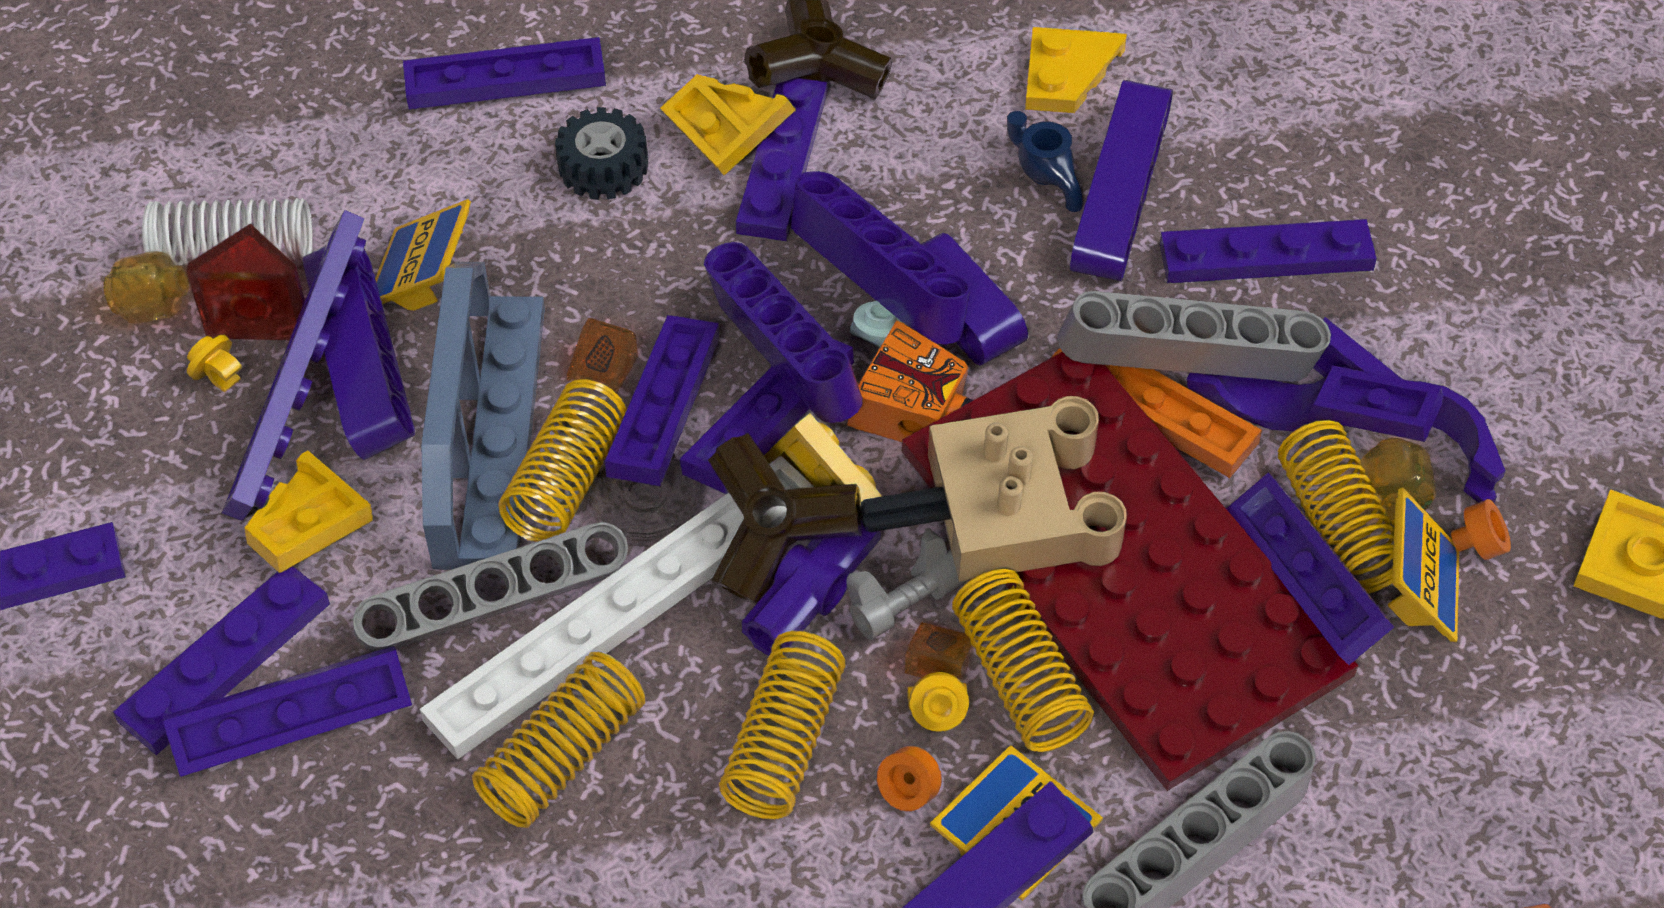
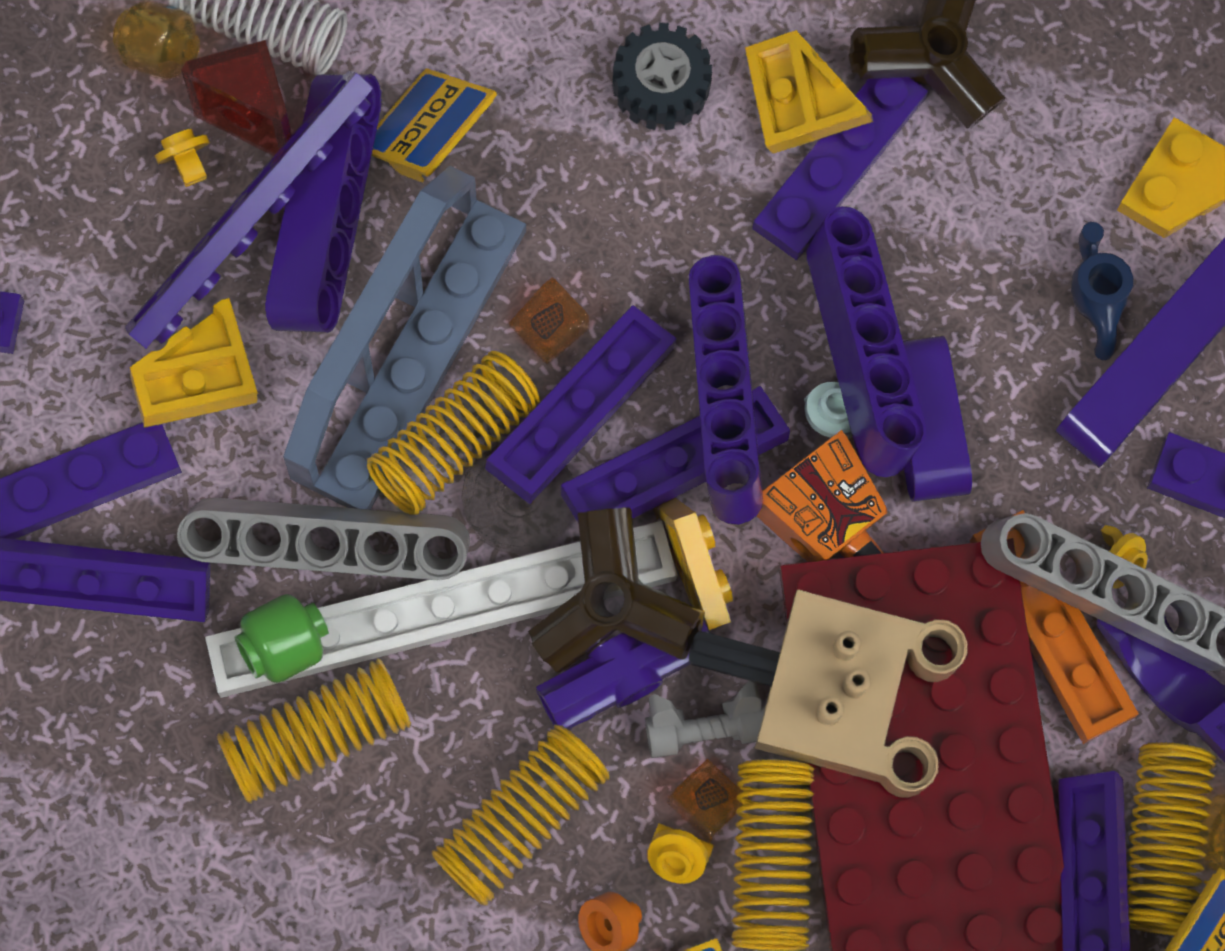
camera: 20 degrees right, 20 degrees up
(493, 667) = (281, 638): none -> bright green head

